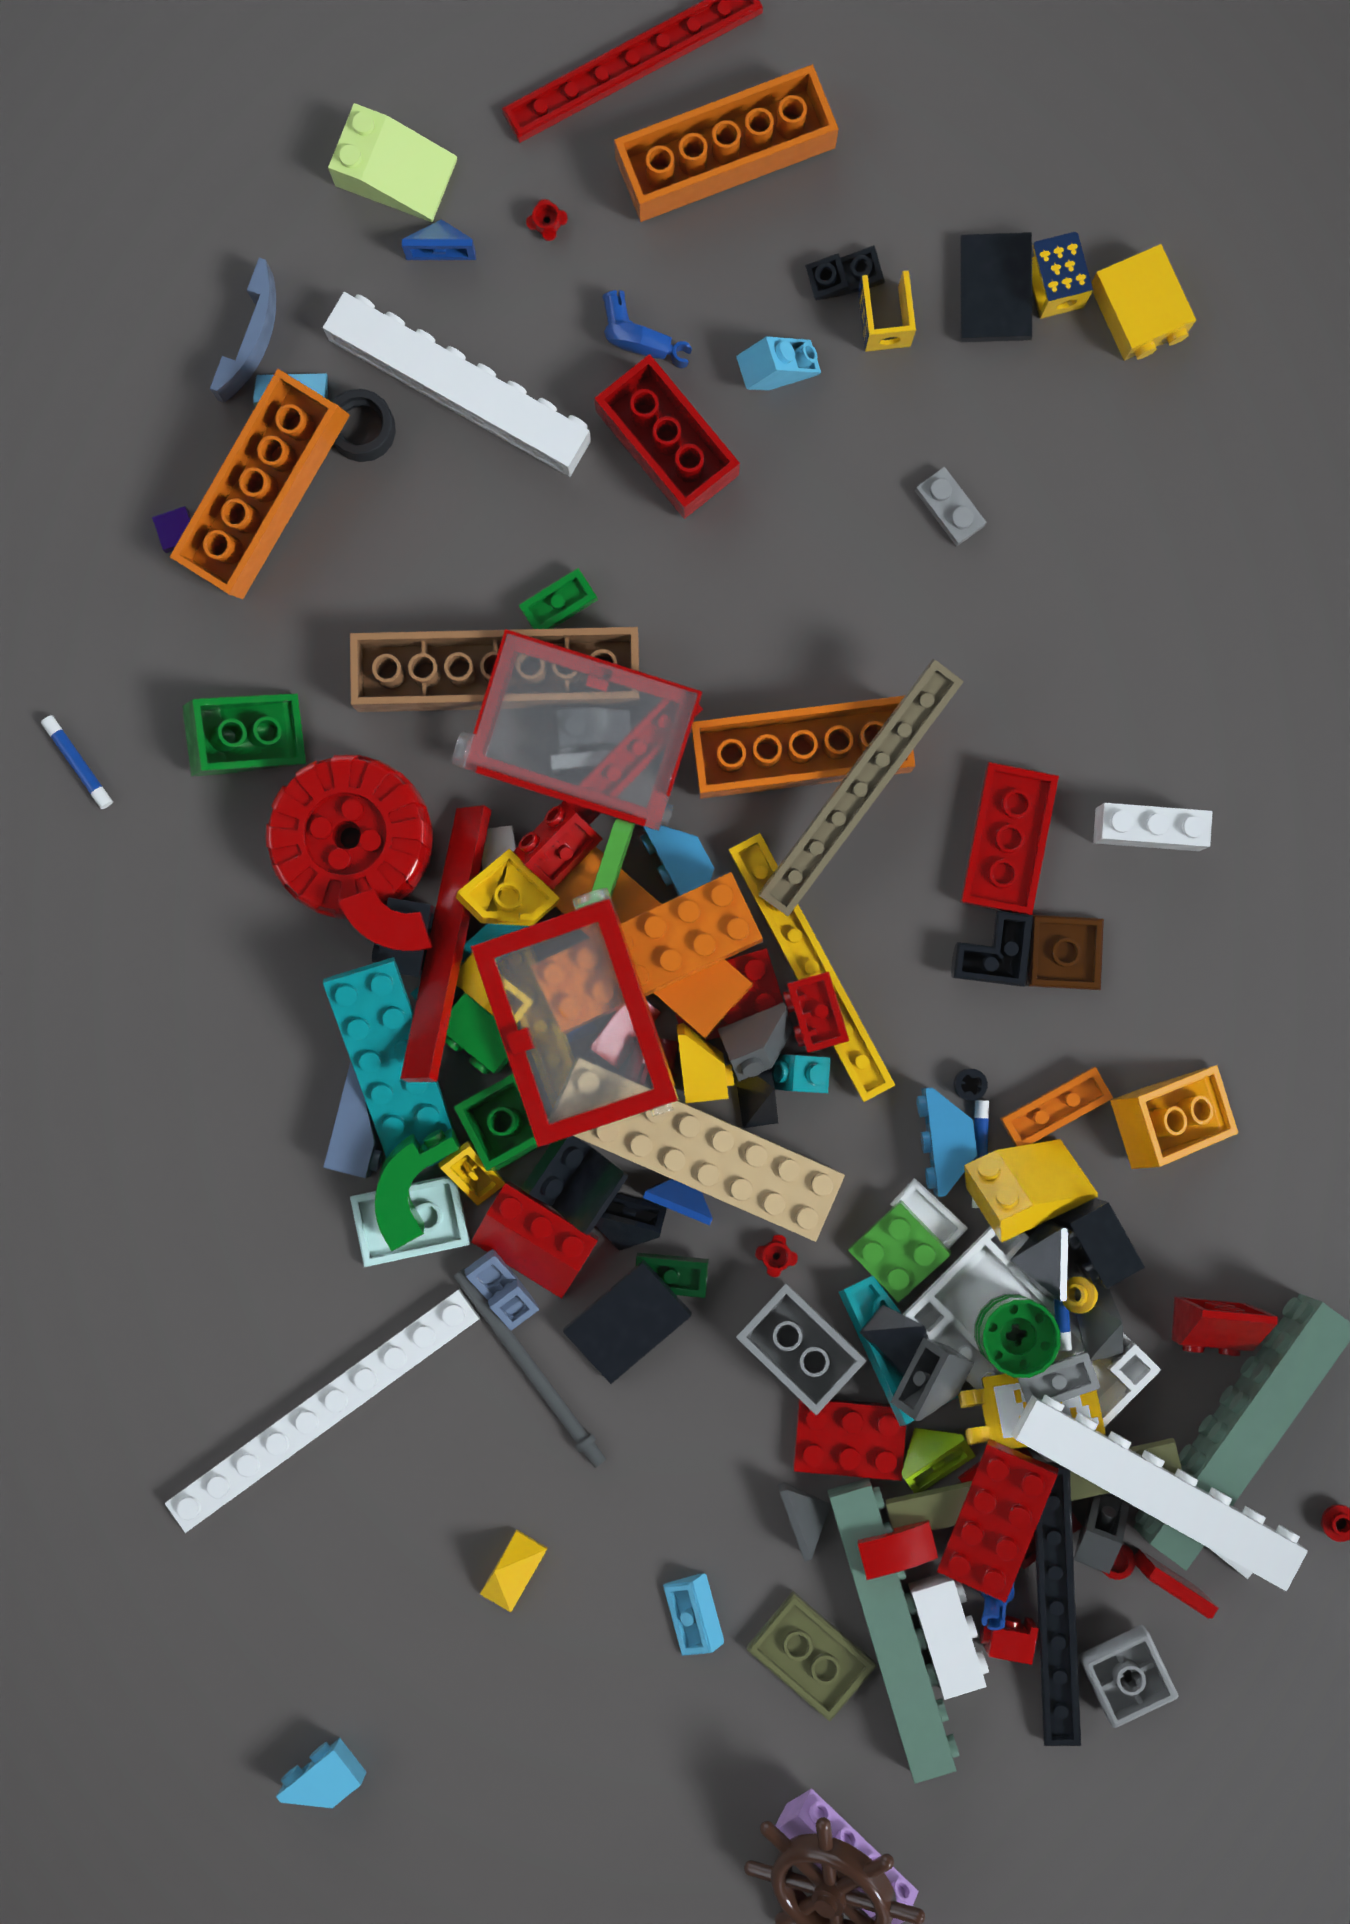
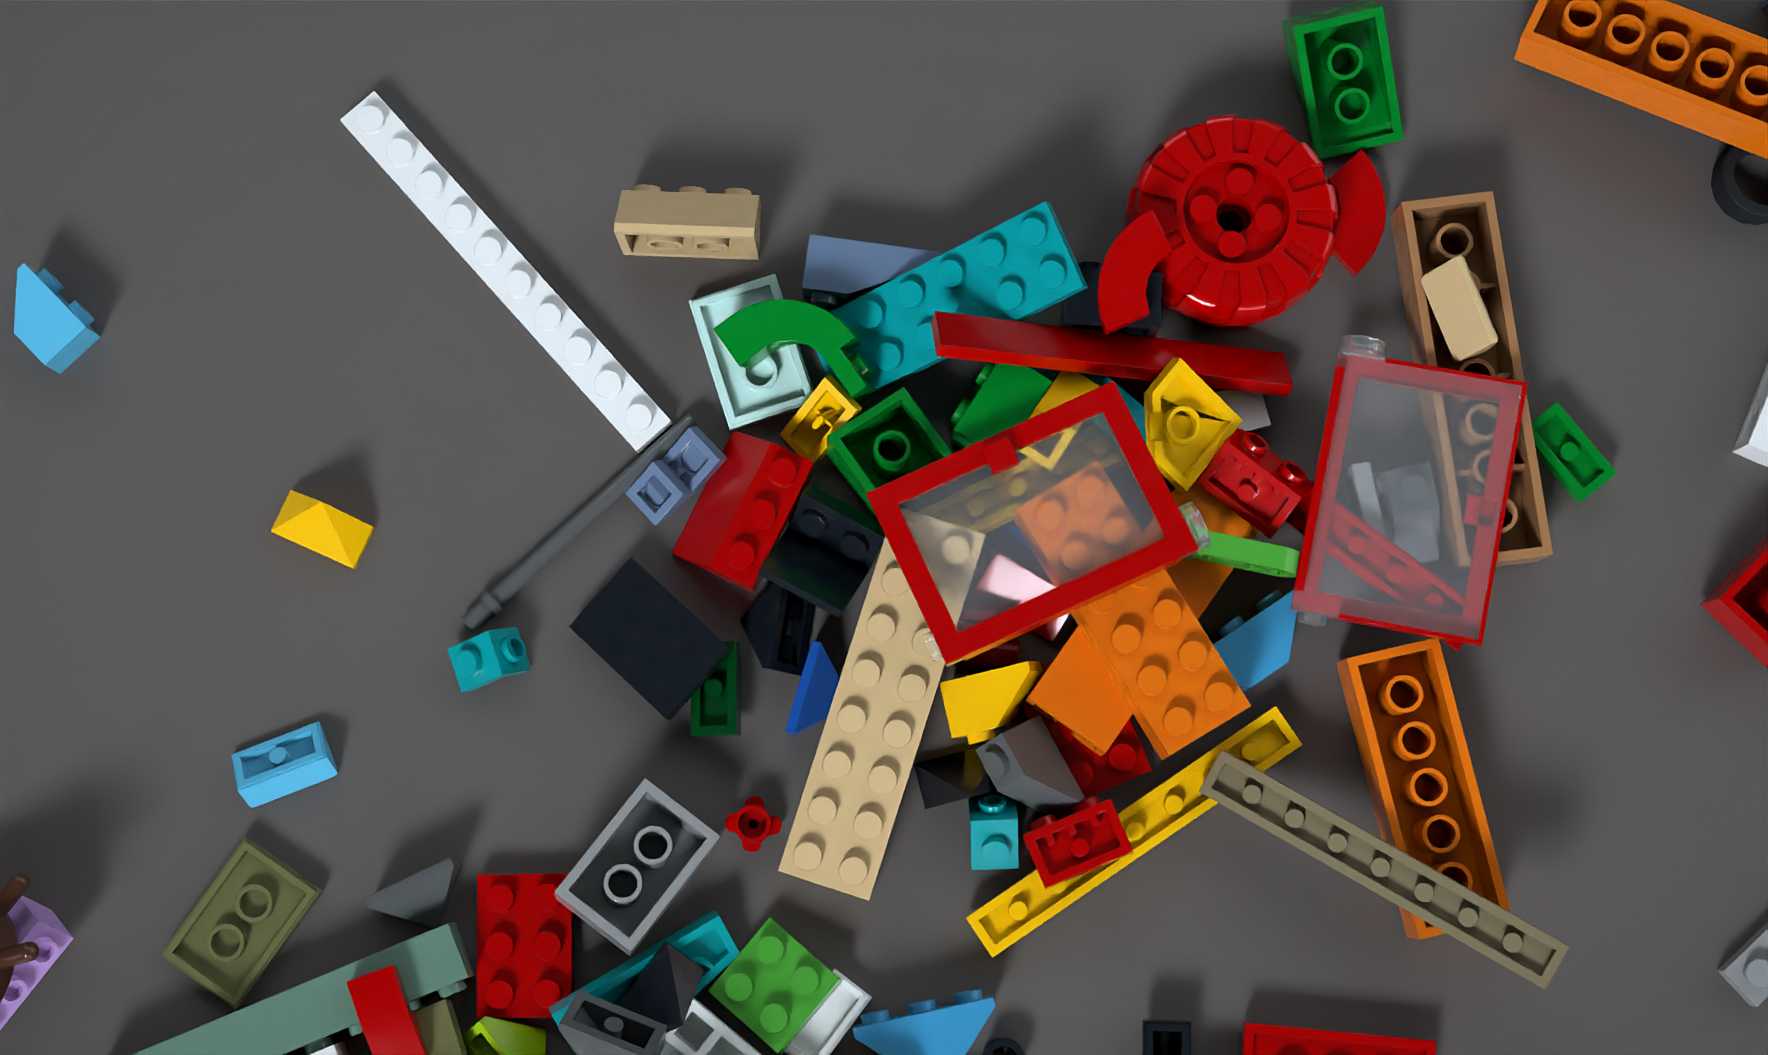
camera: 80 degrees right, 5 degrees down
(301, 1261) = (689, 223): none -> tan slope
(352, 735) = (1359, 212): none -> red tile
(442, 673) = (1459, 309): none -> tan slope
(628, 1448) = (488, 658): none -> teal bracket

